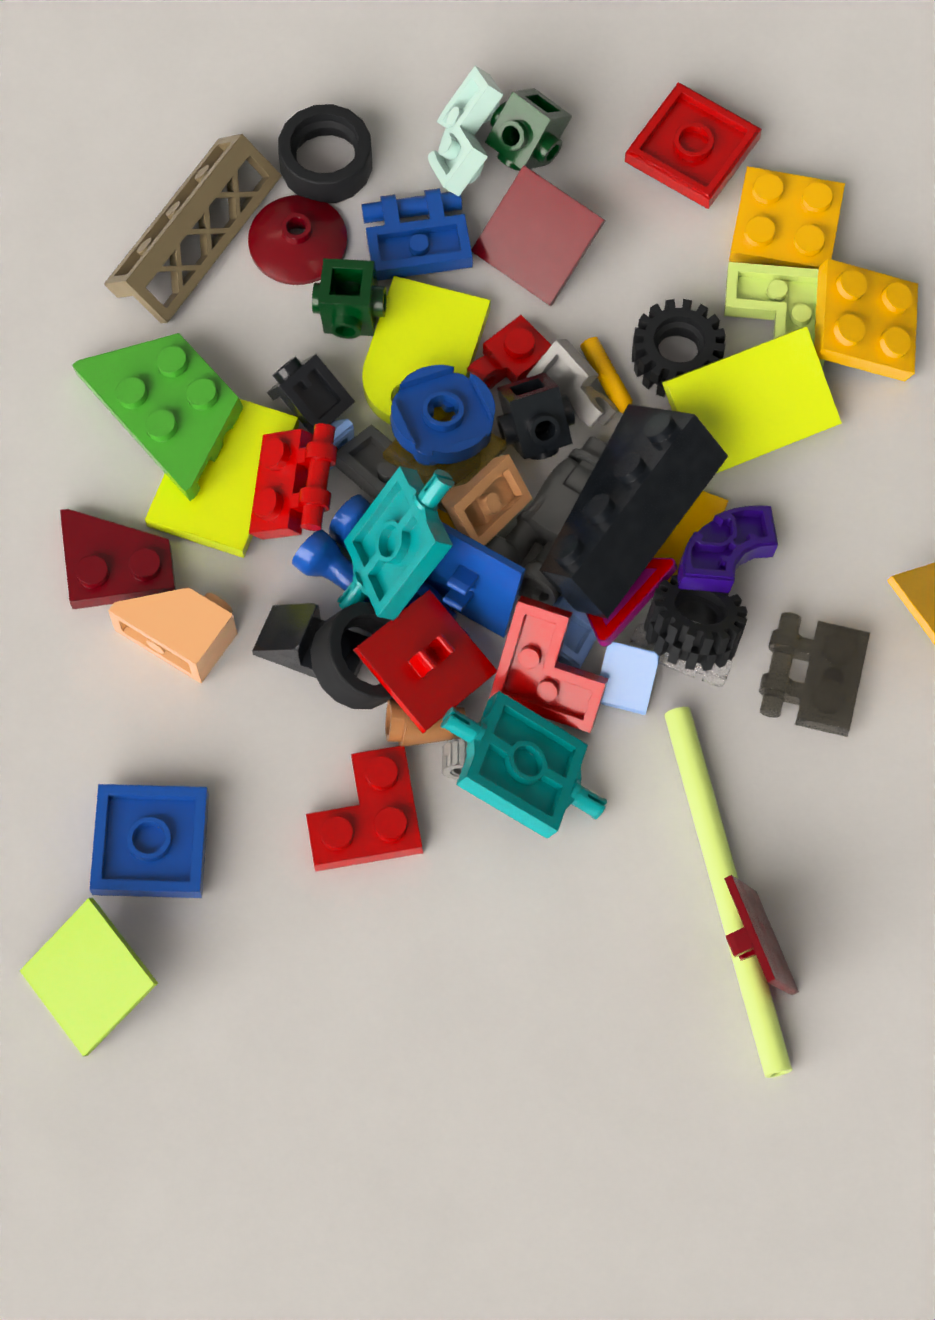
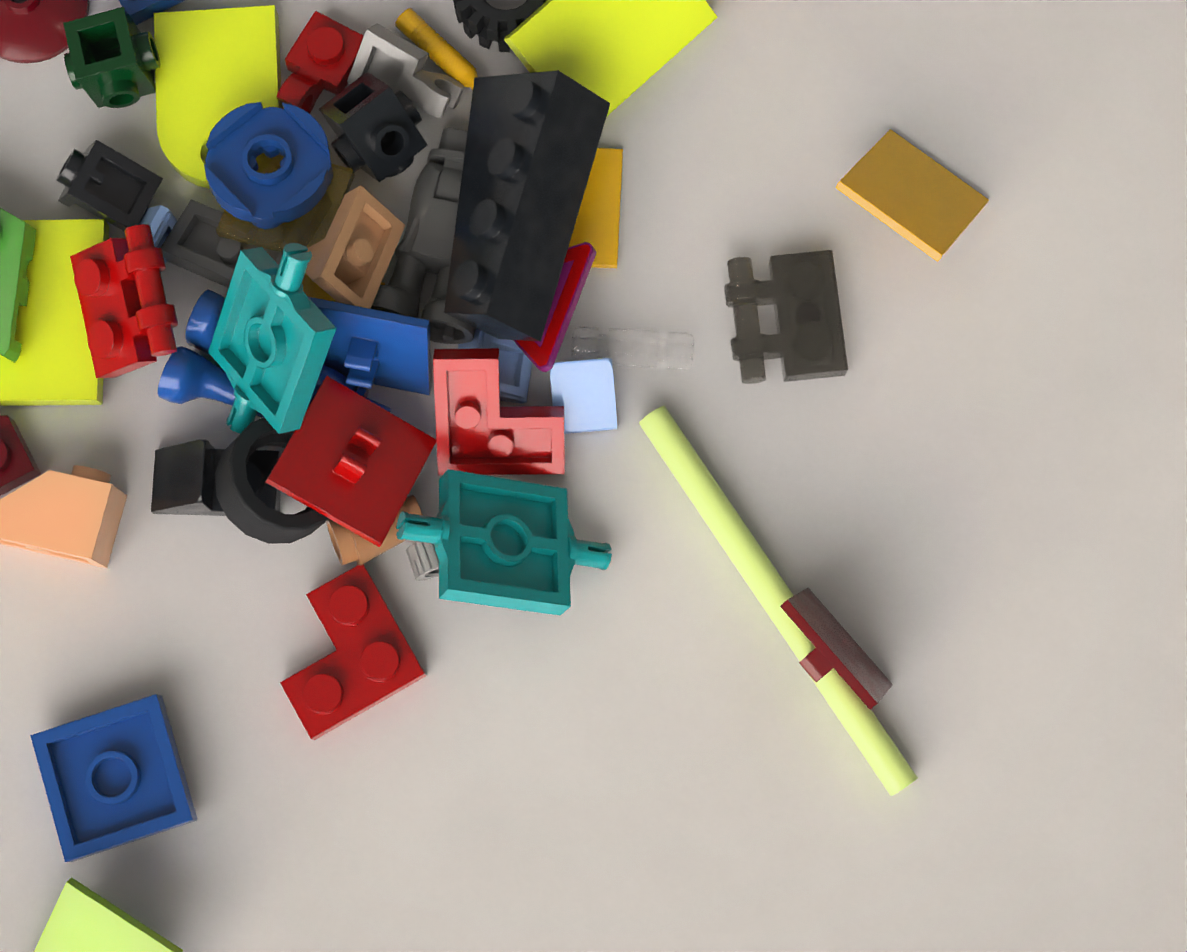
camera: 20 degrees left, 10 degrees up
(674, 632) = (638, 332): black tyre -> none
(724, 545) = (639, 205): dark purple tile -> none

